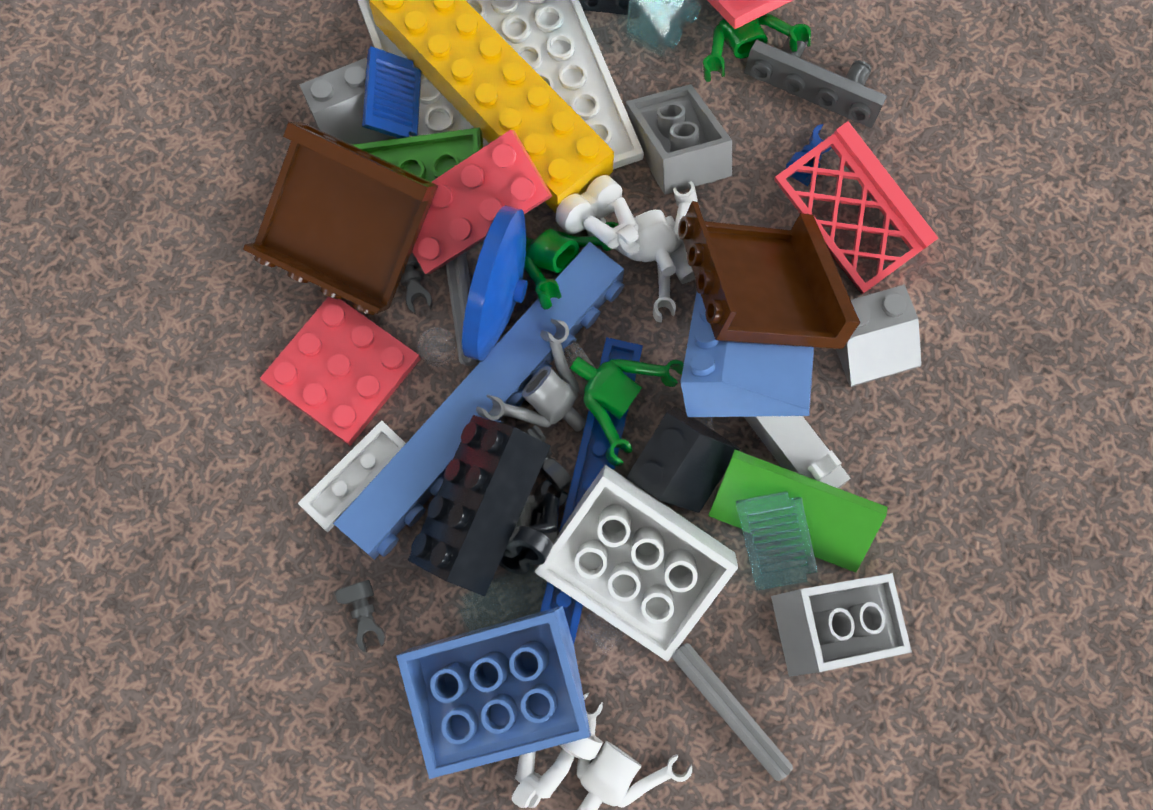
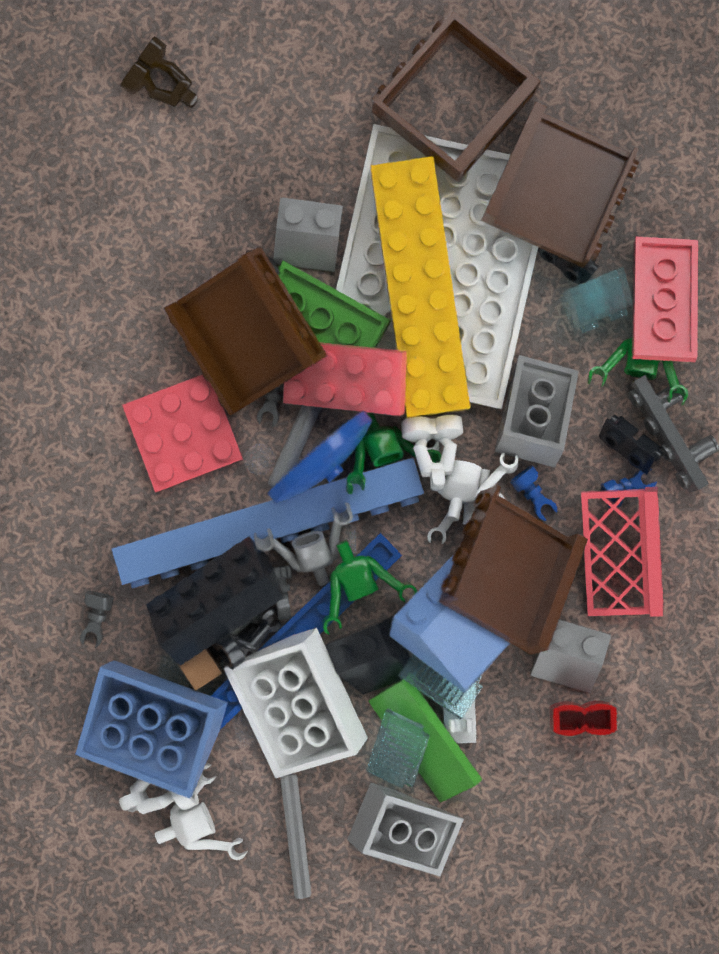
camera: 40 degrees right, 15 degrees up
(97, 50) = (140, 72): none -> dark brown piece
(351, 476) = (146, 519): white plate -> none
(391, 94) = (343, 248): blue window -> none
(509, 591) = (201, 669): none -> medium nougat brick
(727, 212) = (524, 481): none -> blue piece
(773, 436) = (439, 688): none -> clear light blue window
(786, 113) = (619, 435): none -> black hinge
(936, 386) = (573, 719): none -> red brick

